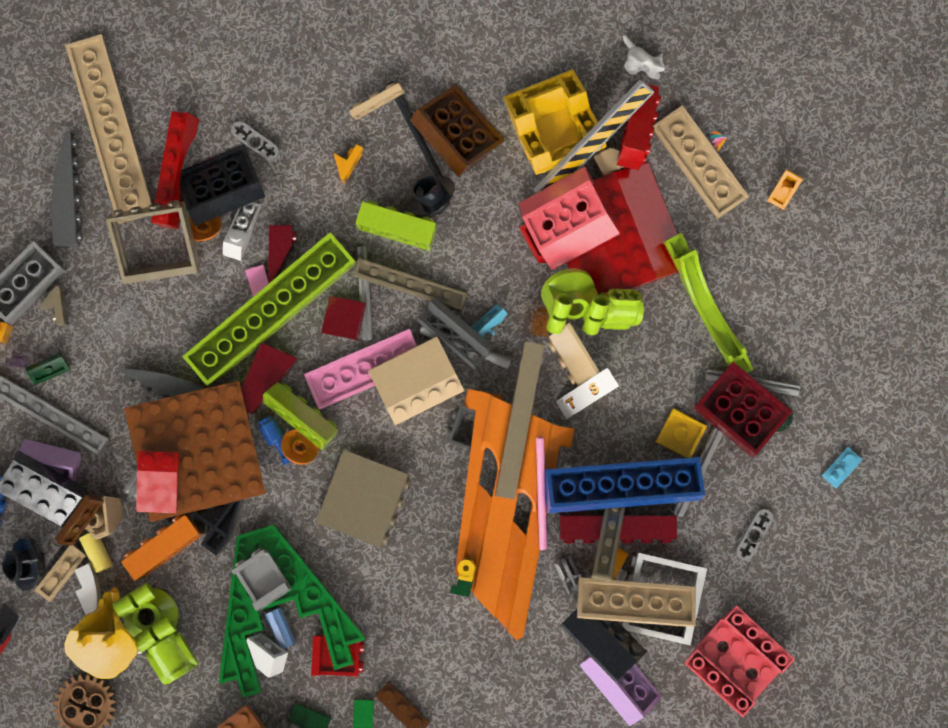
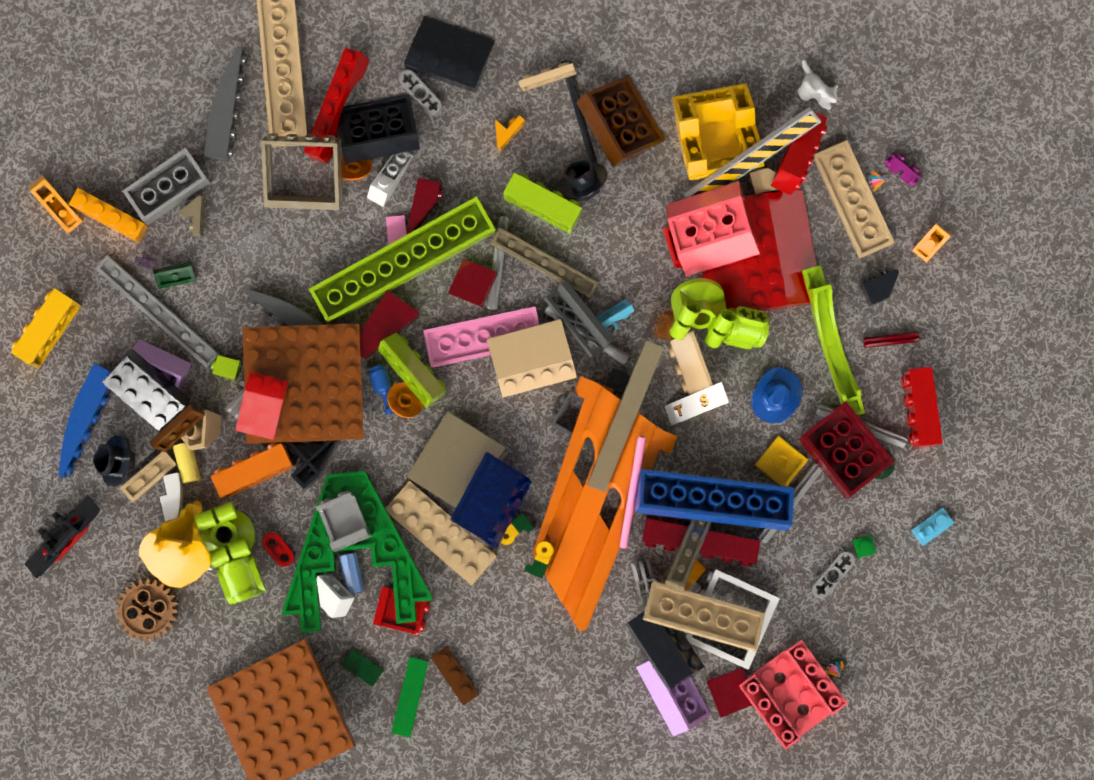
camera: 10 degrees right, 0 degrees up
(117, 450) = (226, 367): none -> lime brick
(203, 620) = (278, 549): none -> red plate
(276, 98) = (449, 54): none -> black slope
(360, 571) = (436, 531): none -> tan plate
(403, 530) = (490, 501): none -> clear blue slope
(428, 556) = (516, 527): none -> leg
(505, 386) = (617, 381): none -> black plate
(664, 369) = (776, 395): none -> blue hat
(673, 671) = (727, 693): none -> dark red tile
(744, 243) = (879, 288): none -> black slope
(749, 124) = (899, 163): none -> magenta hinge
(764, 292) = (893, 339): none -> dark red axle
(775, 626) = (835, 668): none -> tile
(779, 500) = (864, 546): none -> green plate
(808, 353) = (922, 408): none -> red brick

